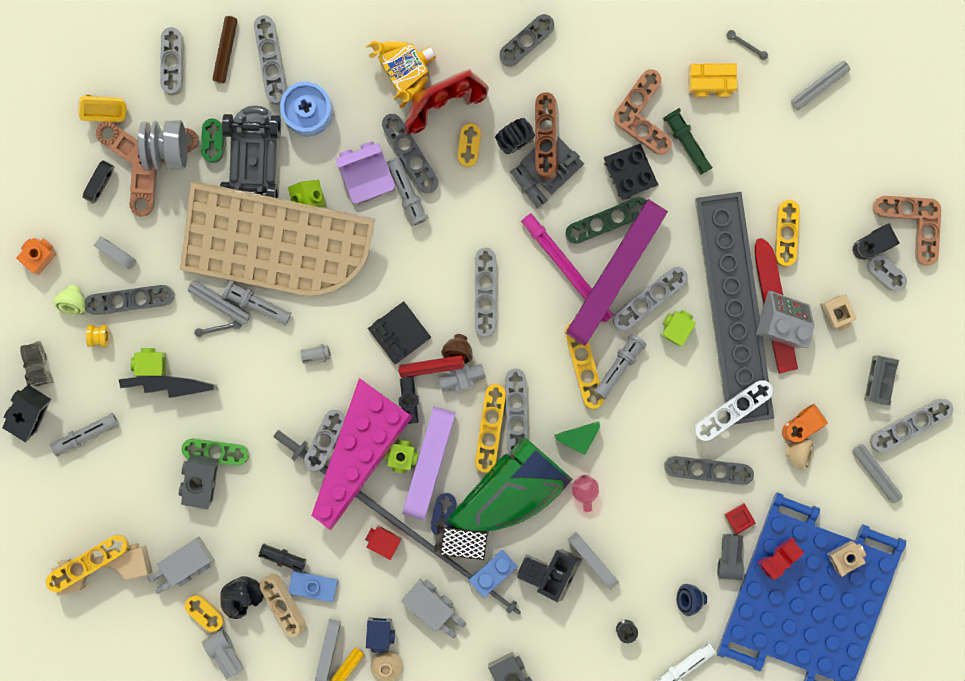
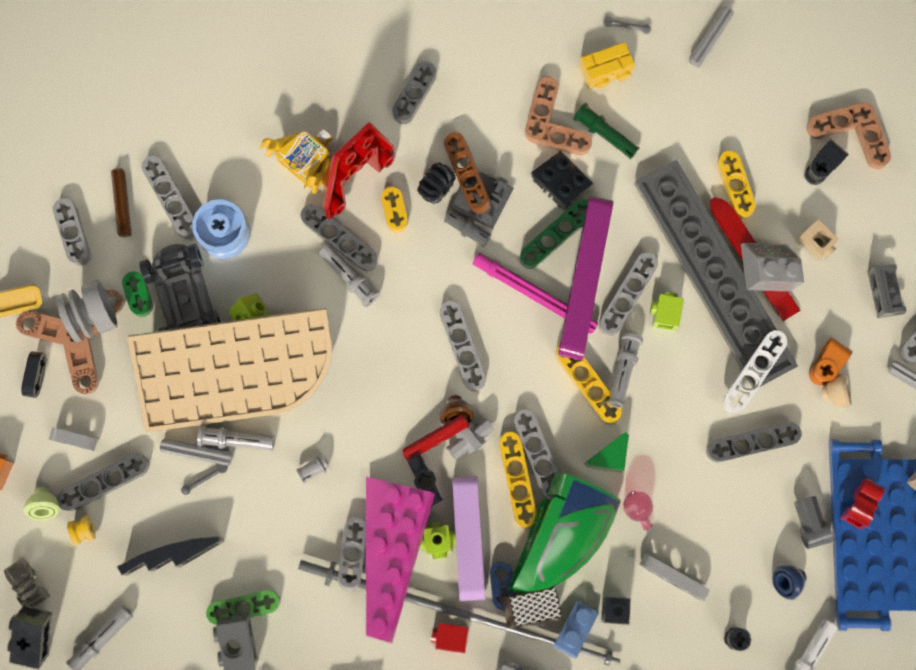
camera: 20 degrees left, 10 degrees down
(148, 363) = (143, 538): lime brick -> none
(365, 172) = (300, 270): lavender bracket -> none
(399, 332) = (390, 417): black hinge -> none
(559, 575) = (645, 605): black brick -> none
(740, 518) = (804, 480): red tile -> none
(890, 269) = (848, 188): light grey beam -> none

